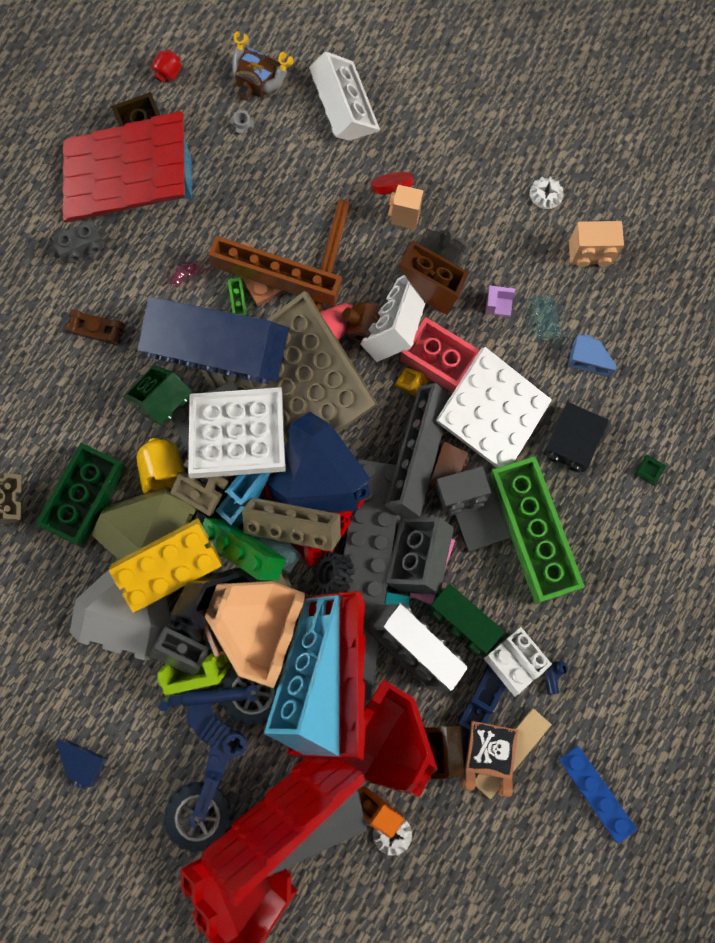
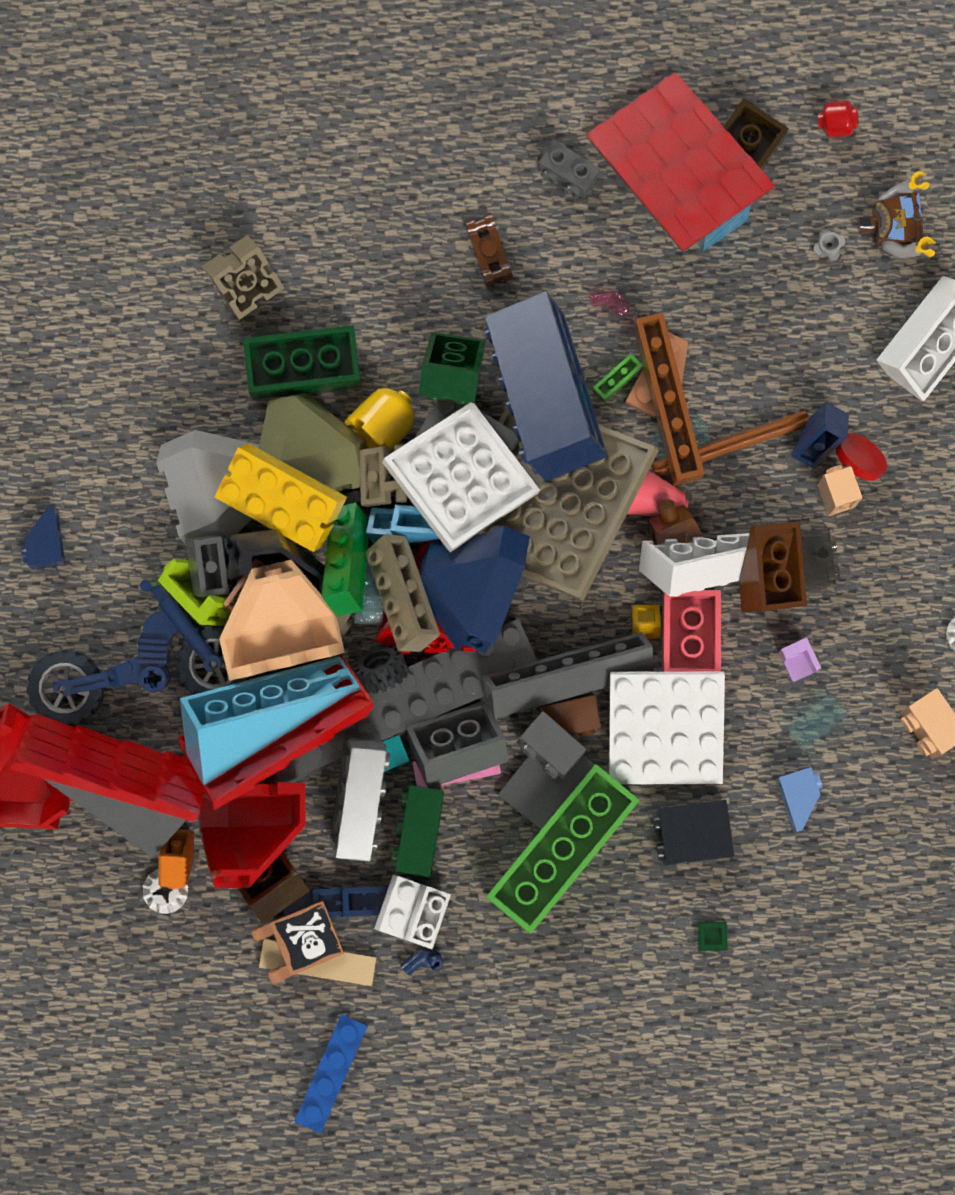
camera: 60 degrees right, 5 degrees up
(362, 197) = (821, 435): none -> dark blue slope

